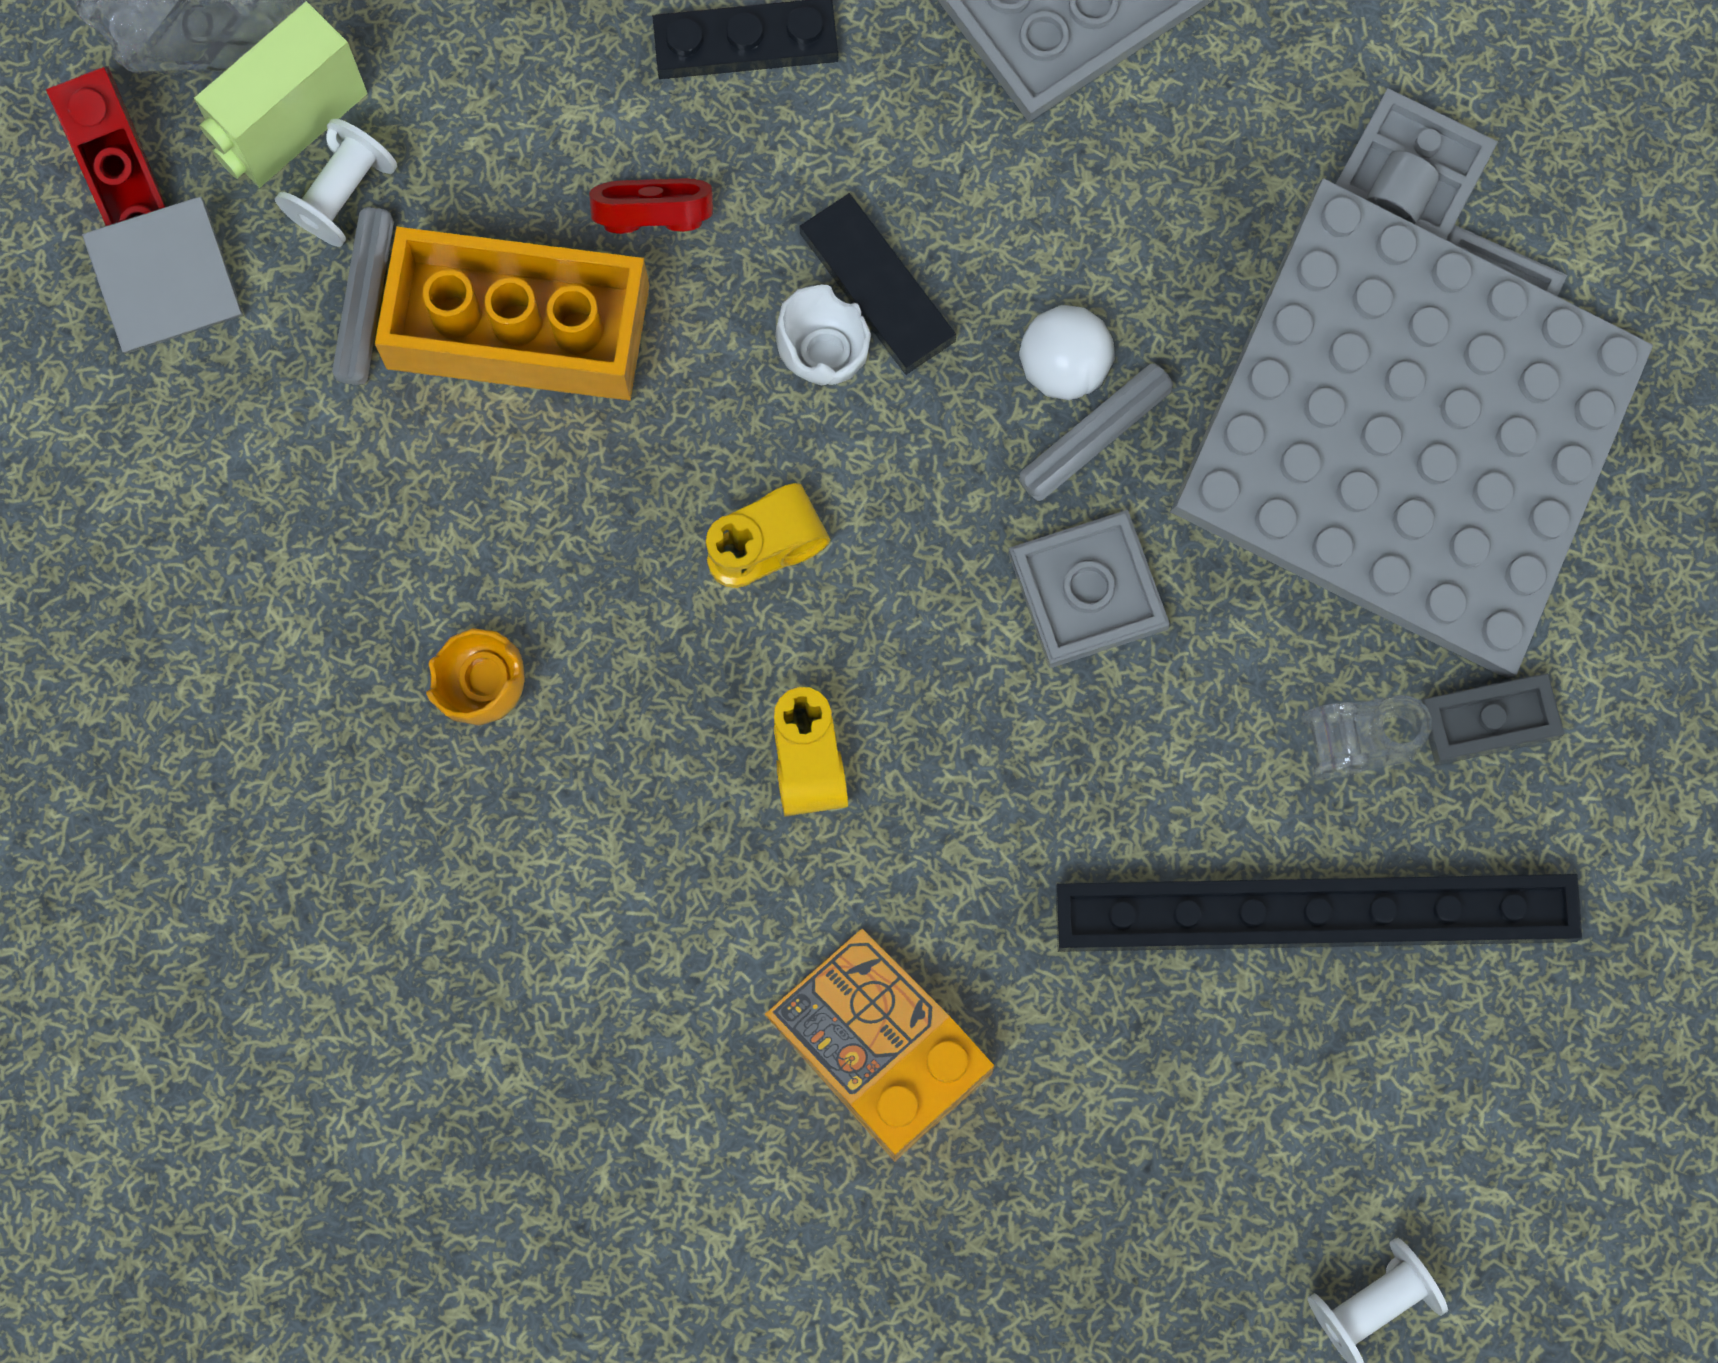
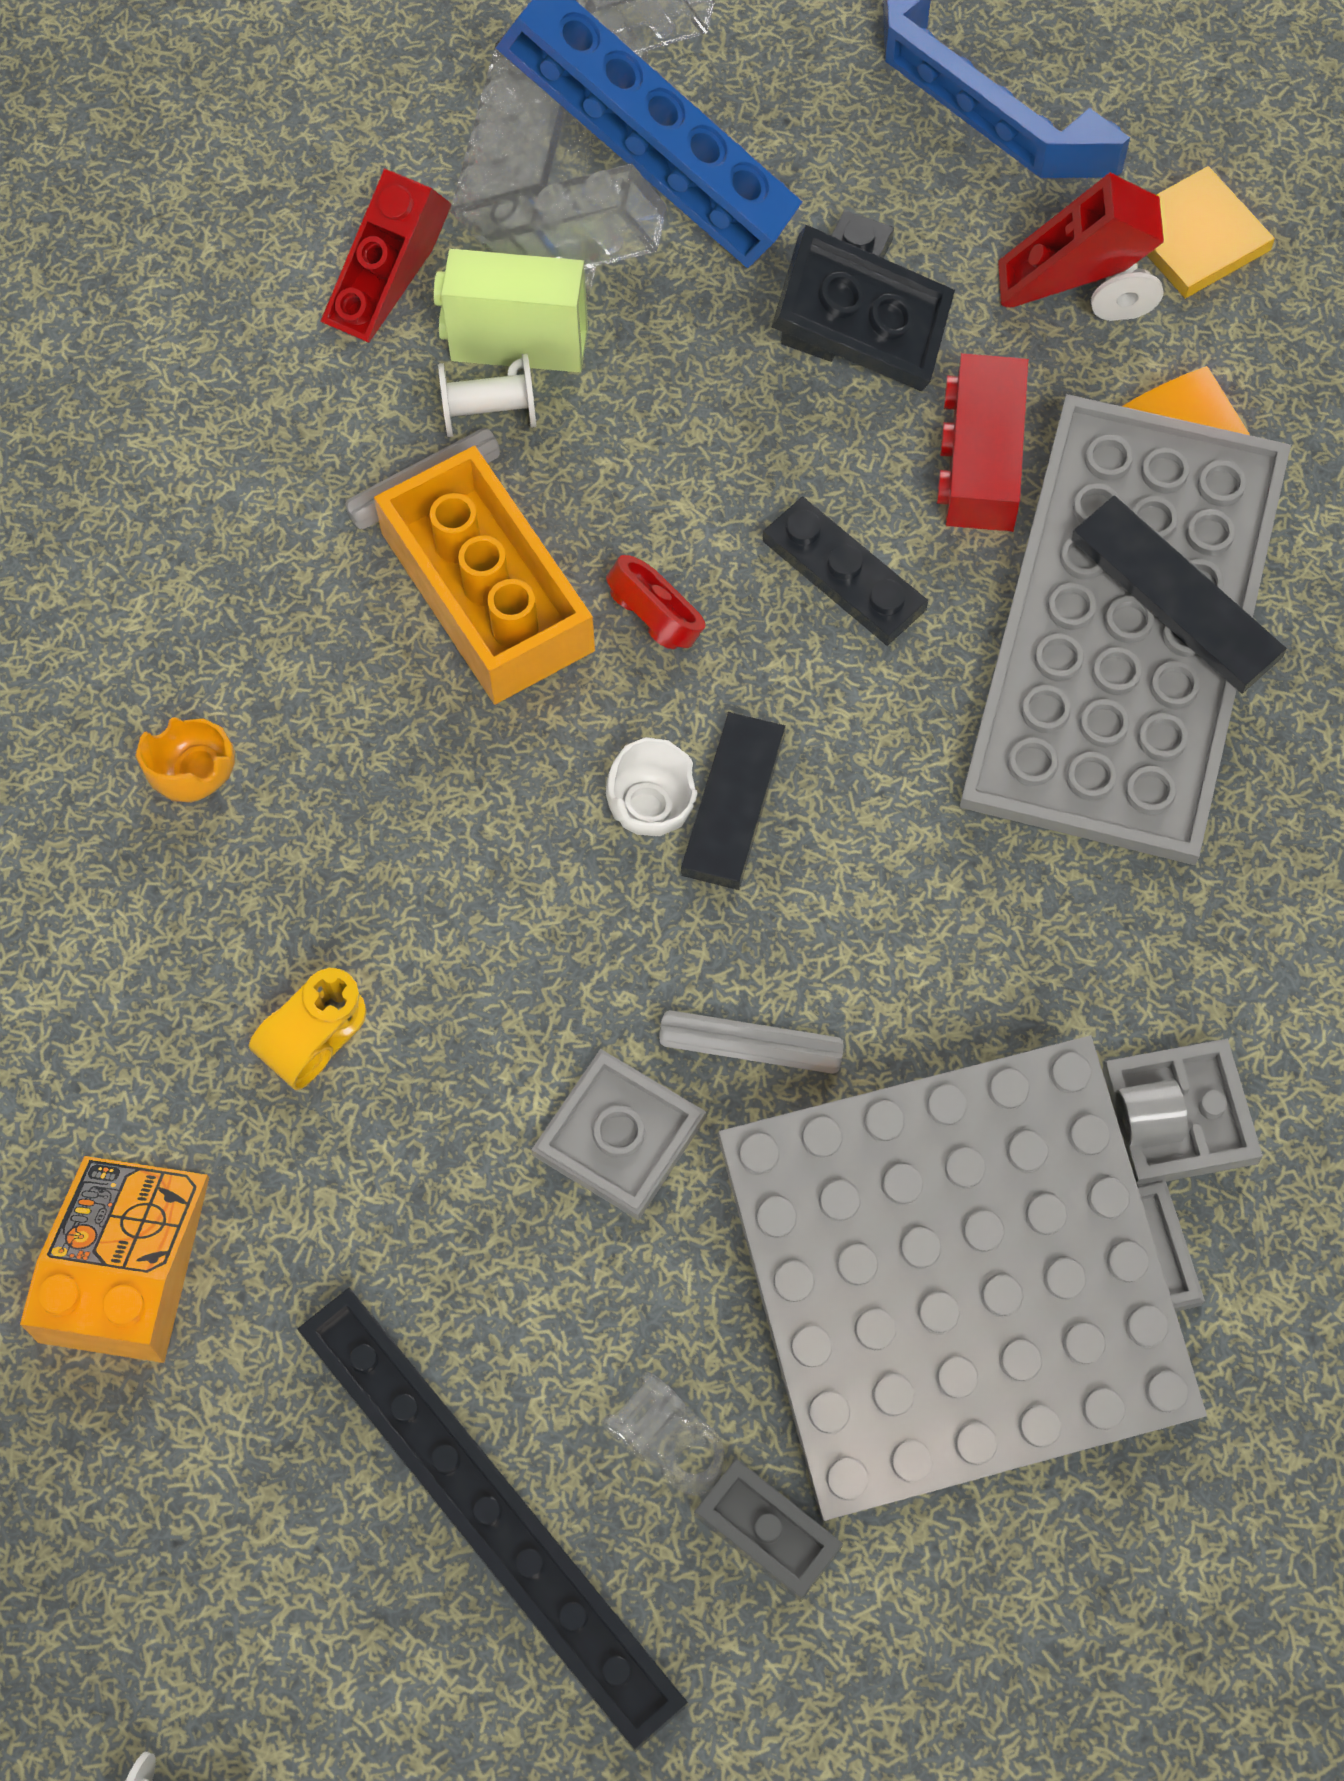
camera: 50 degrees right, 10 degrees down
(162, 275) = (327, 346): light grey tile -> none
(773, 532) = (466, 873): yellow piece -> none
(1067, 352) = (797, 972): white hair -> none

